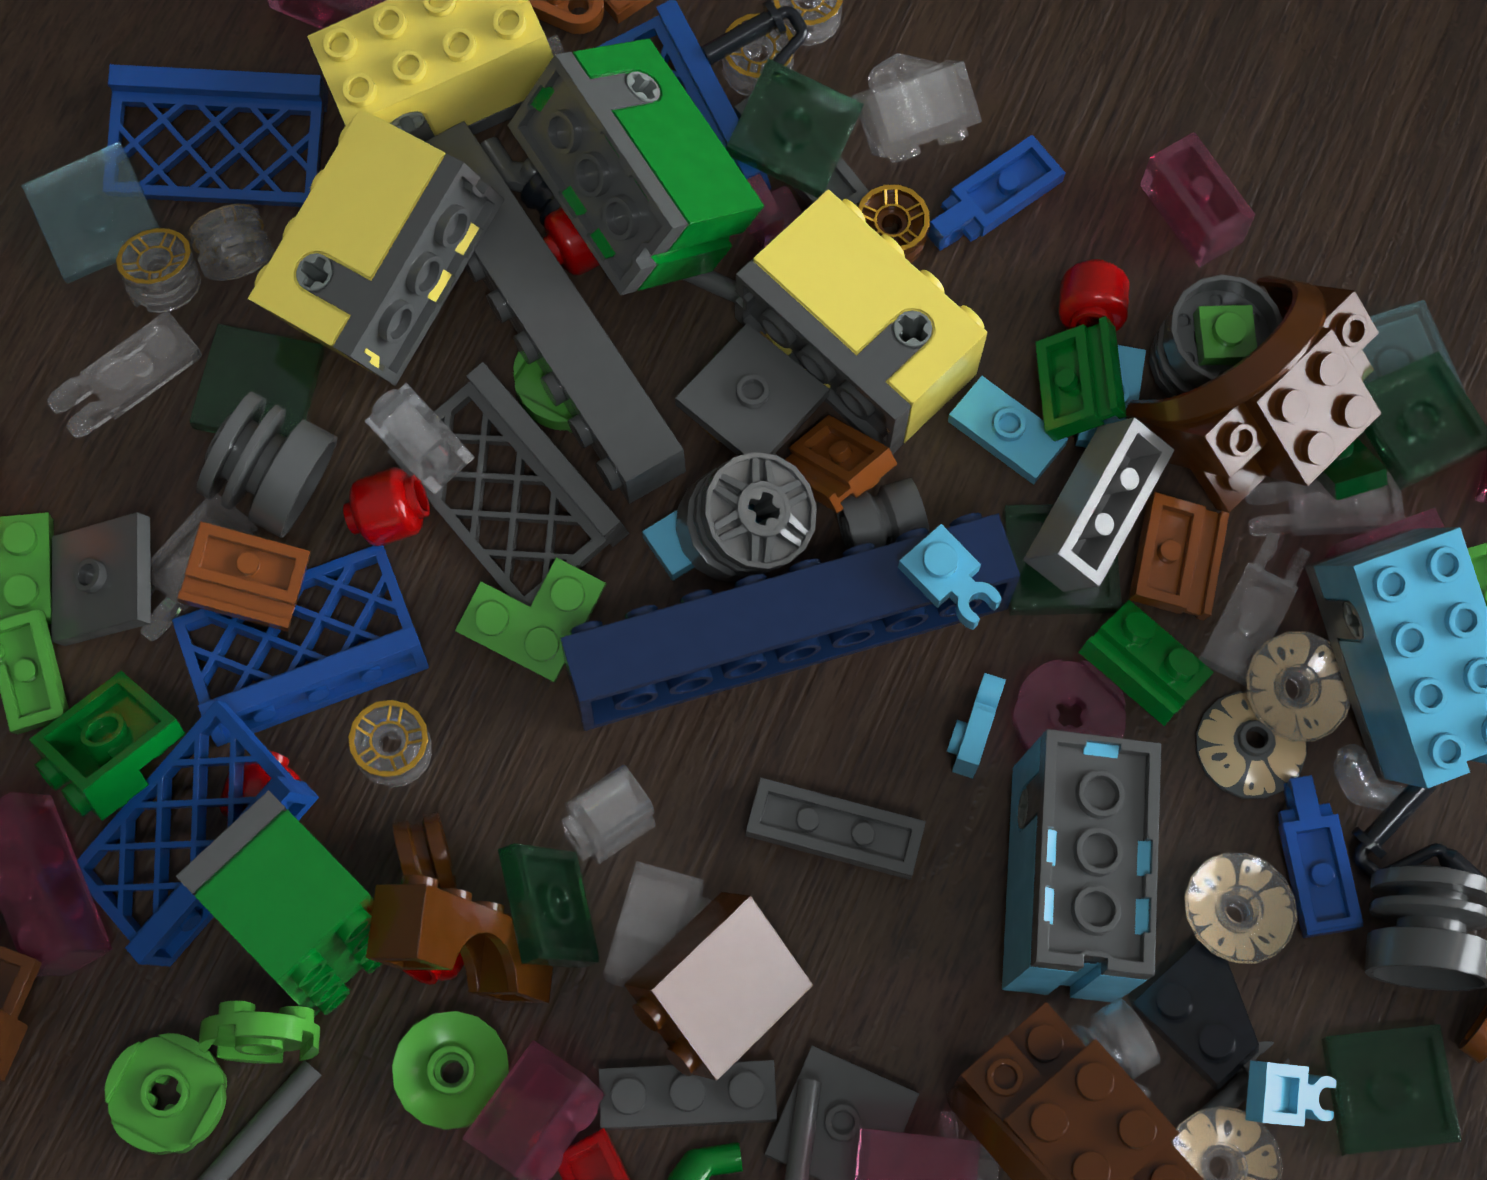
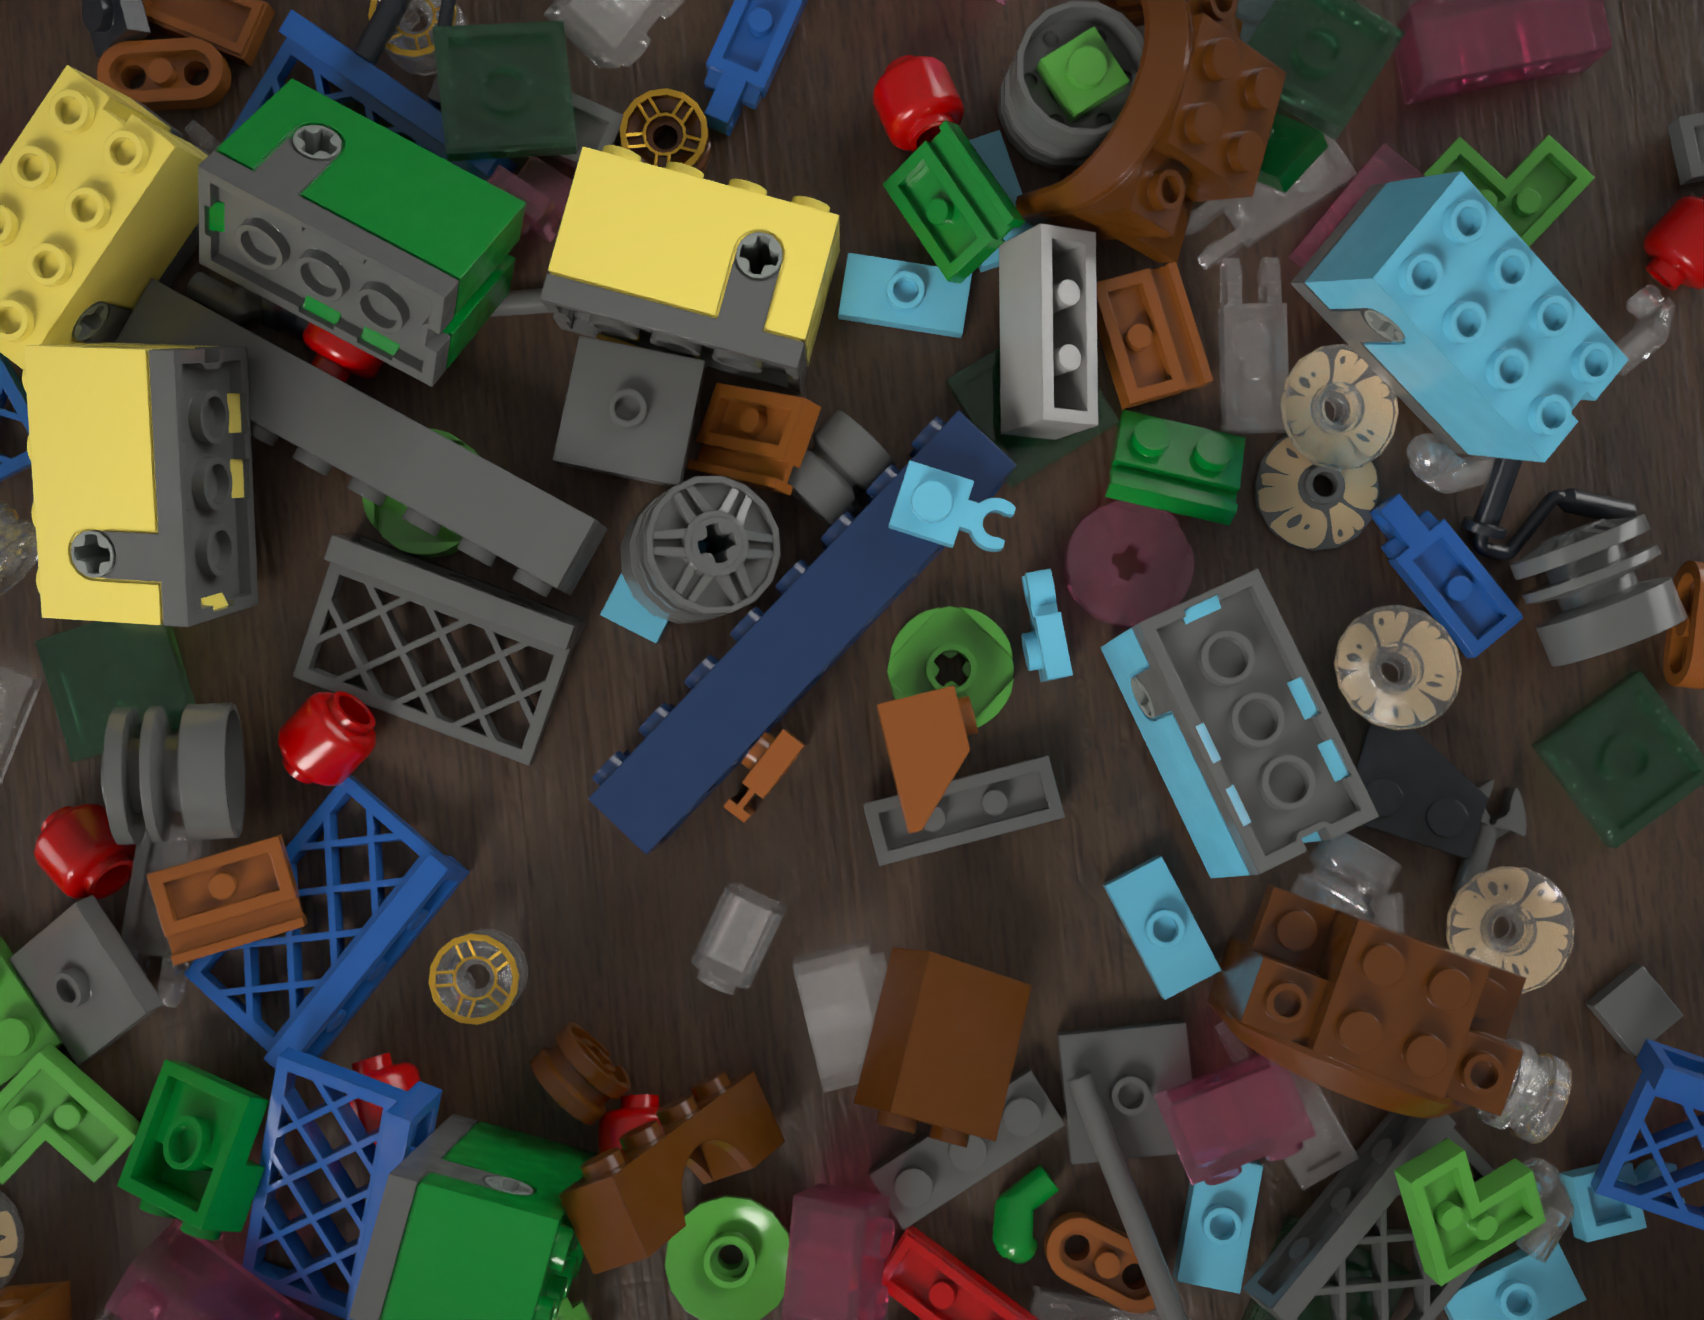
camera: 30 degrees left, 15 degrees up
(161, 487) = (82, 853): none -> red head
(418, 437) = (313, 660): clear brick -> none
(533, 632) = (552, 783): bright green plate -> none
(548, 906) = (732, 1061): clear green tile -> none
(705, 705) = (768, 763): none -> dark orange plate
(833, 754) = (925, 747): none -> dark orange slope
(872, 747) = (951, 632): none -> bright green plate
(941, 1010) = (1161, 927): none -> medium azure plate
(1285, 1094) = (1533, 829): medium azure plate -> none

